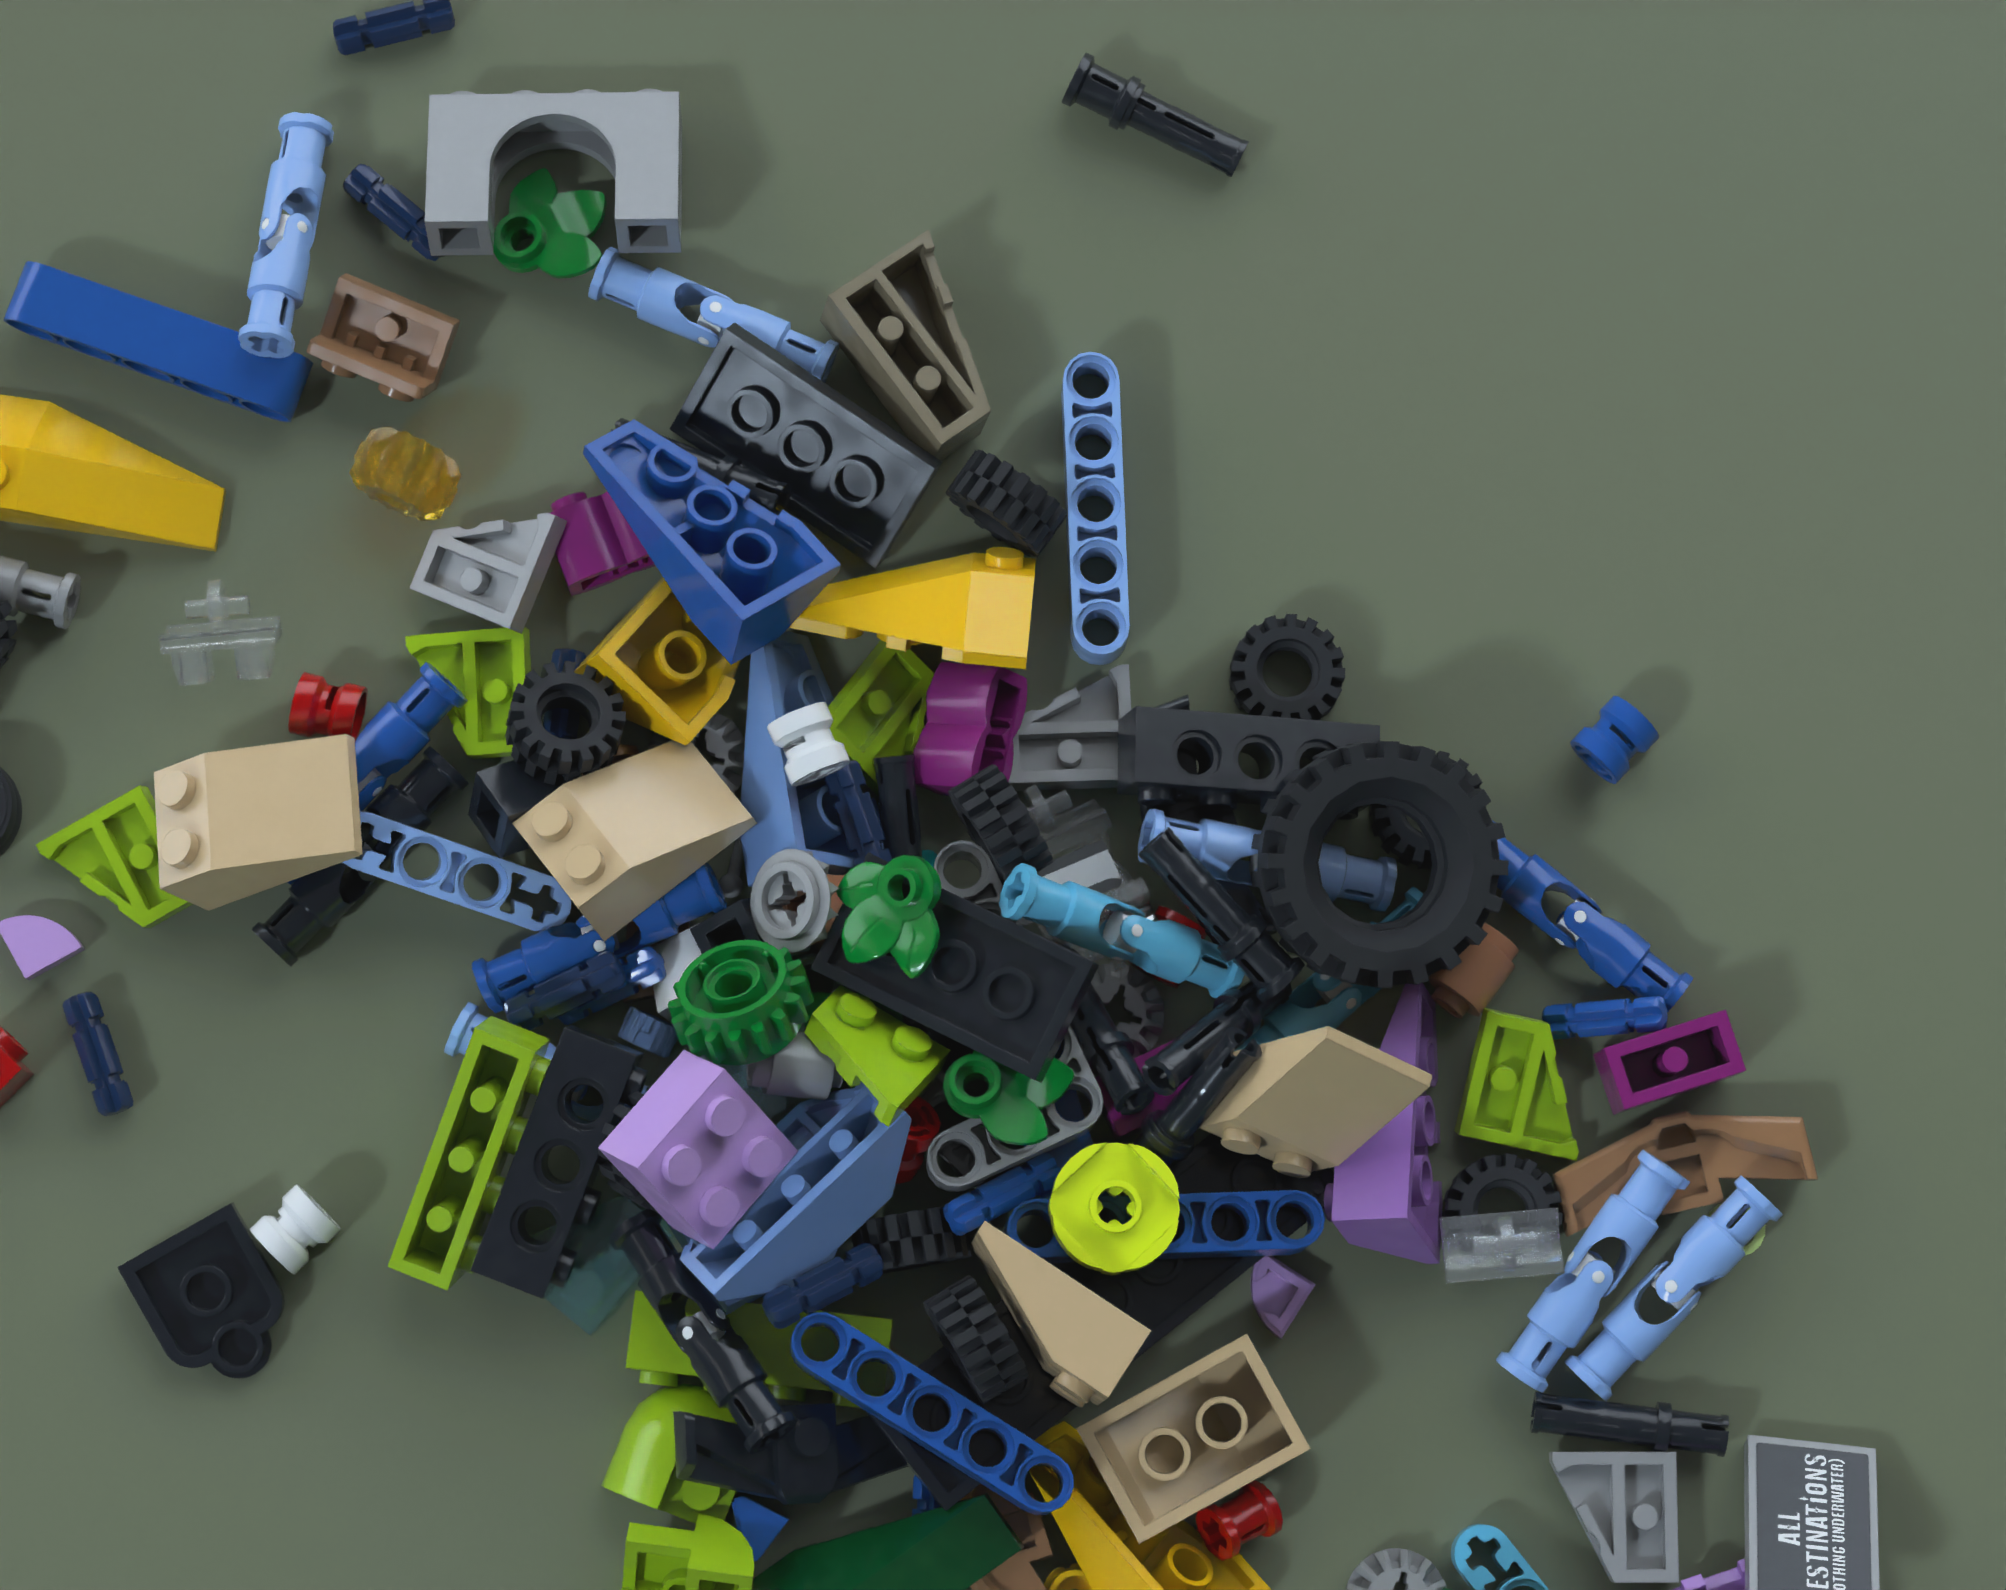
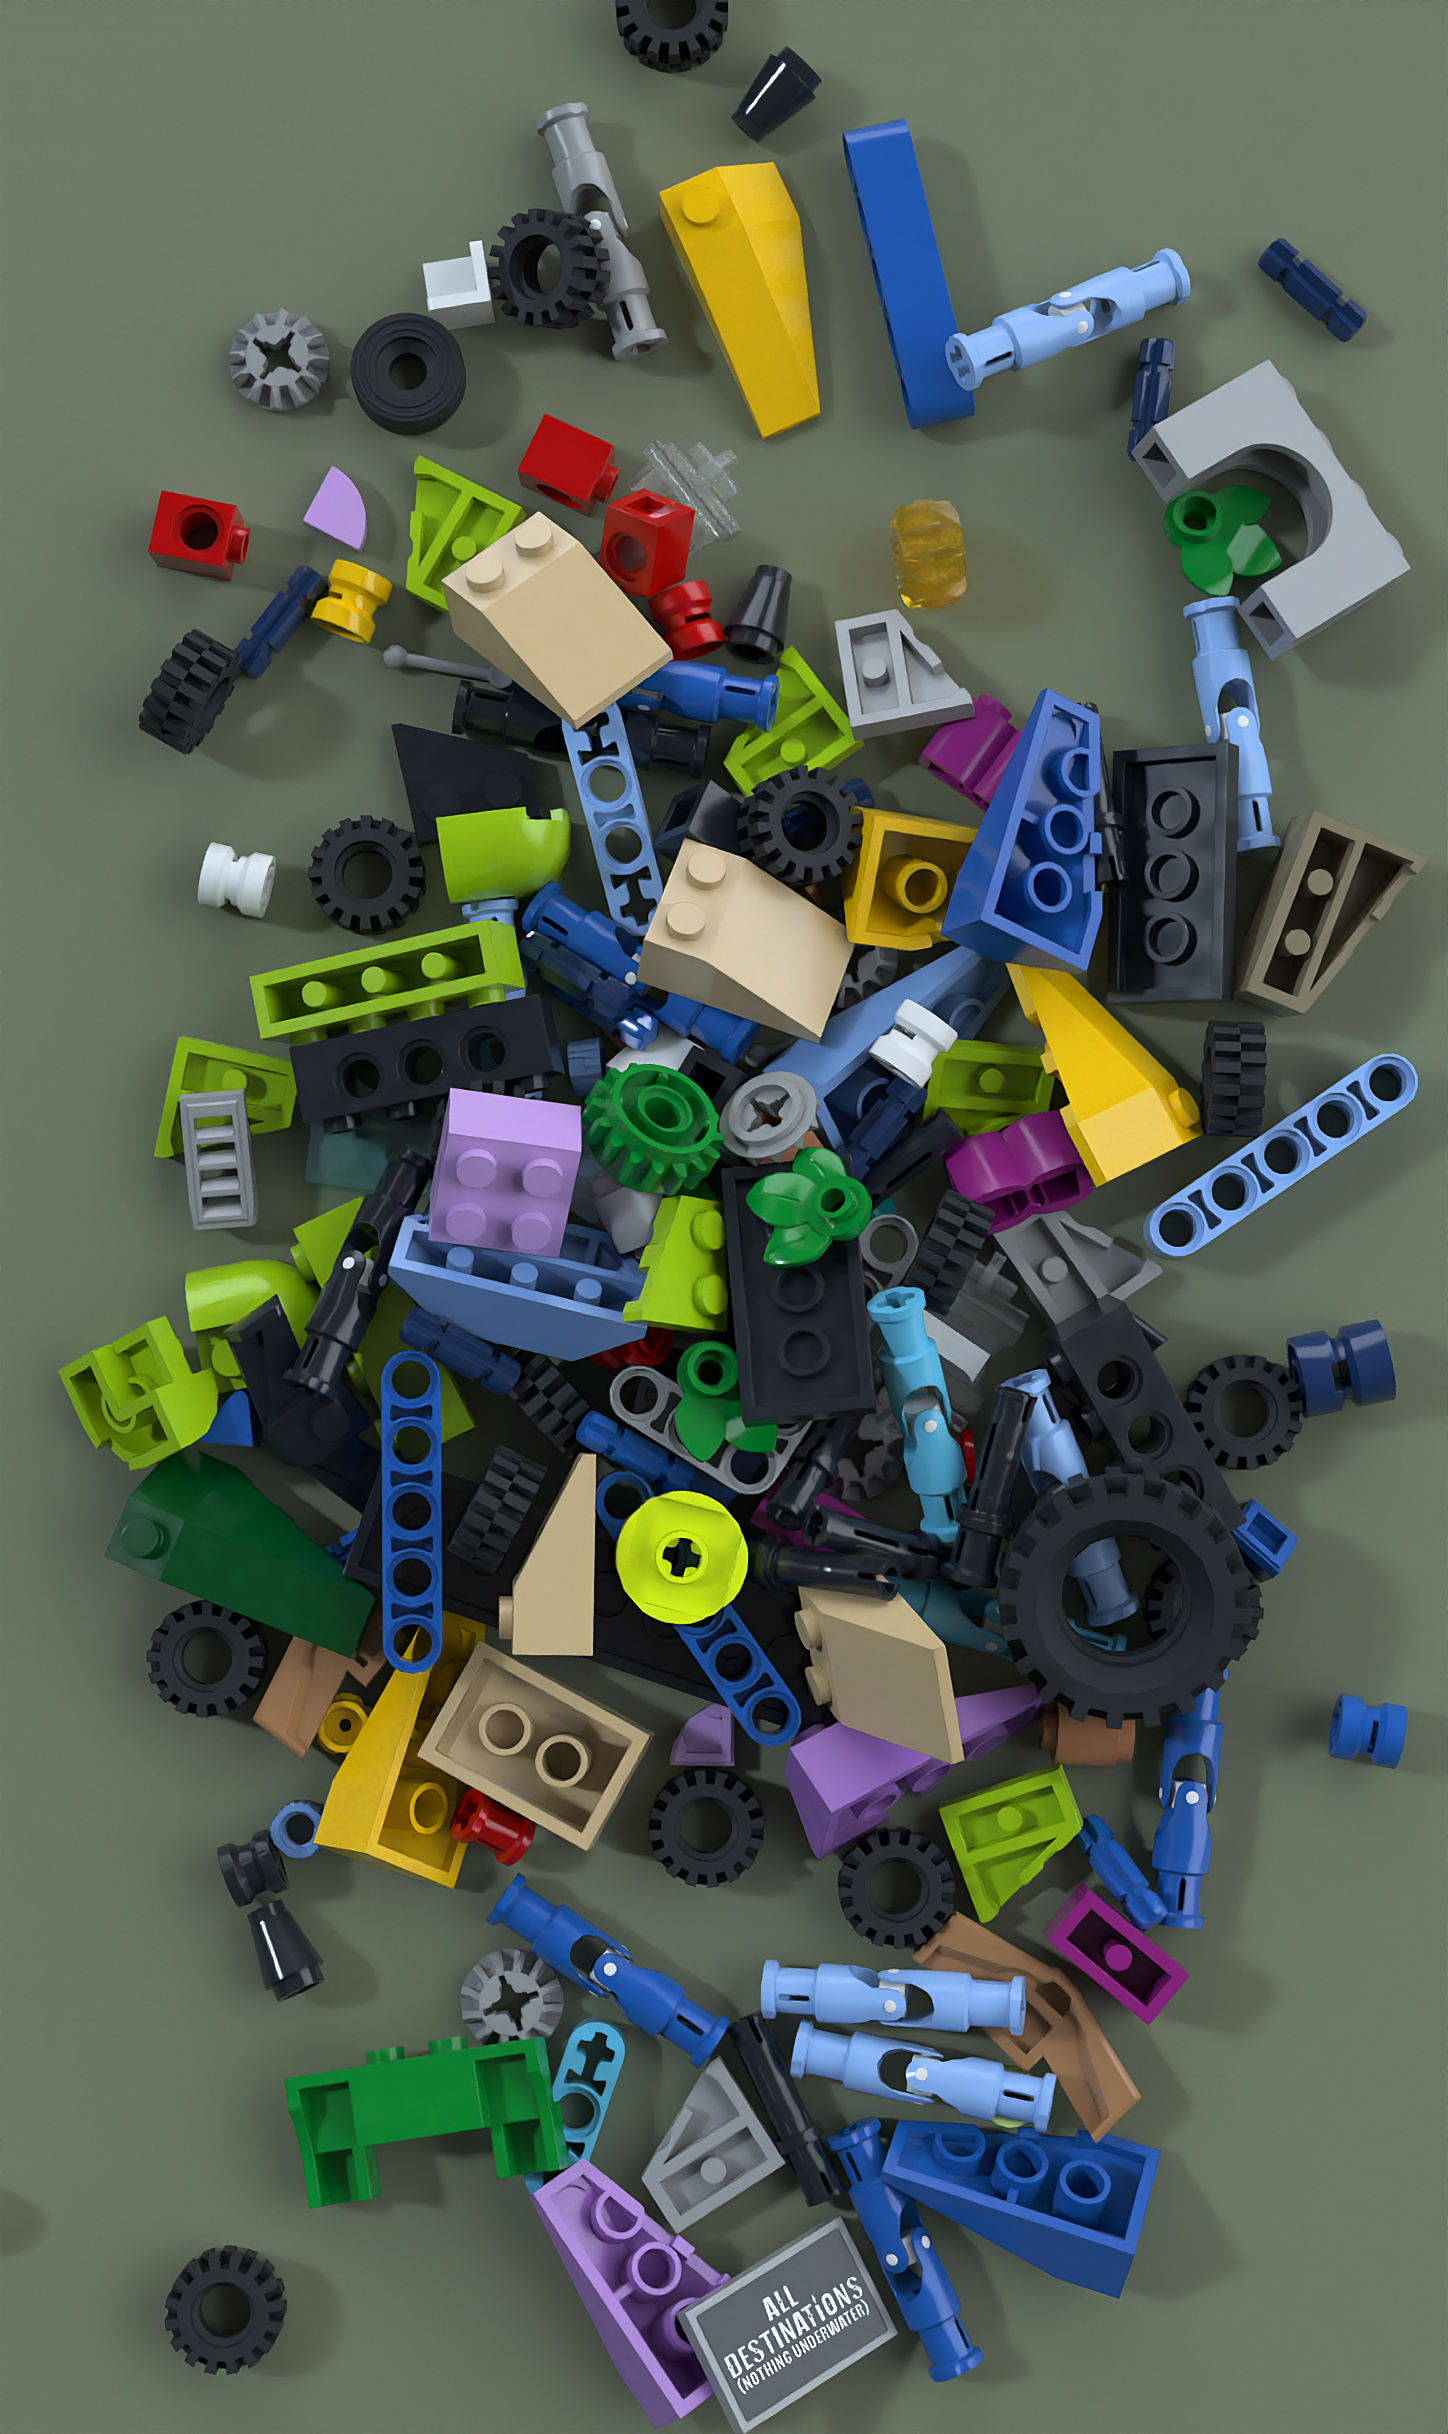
camera: 65 degrees right, 5 degrees up
(109, 1164) = (190, 691): none -> black tyre
(123, 980) = (351, 601): none -> yellow wheel
(131, 724) = (569, 466): none -> red brick
(195, 973) = (397, 657): none -> light grey hinge
(209, 1295) = (138, 845): black plate -> none
(235, 679) = (646, 542): none -> red brick
(328, 1099) = (361, 837): none -> black tyre
(339, 986) = (459, 777): none -> black wing
(364, 646) = (760, 618): none -> black cone
(384, 339) = (1033, 461): medium nougat bracket -> none
(423, 987) = (502, 853): none -> lime brick
(472, 1357) = (214, 1067): none -> lime wing
(570, 1419) = (227, 1210): none -> light grey slope
(1307, 548) = (1362, 1362): none -> dark blue wheel
(1391, 1331) = (712, 1866): none -> black tyre
(1406, 722) = (1263, 1542): none -> blue slope
(1459, 1484) = (645, 1996): none -> blue piece
(1501, 1245) = (862, 1907): clear hips -> none
(1796, 1395) = (900, 2240): none -> blue piece
(1839, 1251) = (1041, 2197): none -> blue wedge

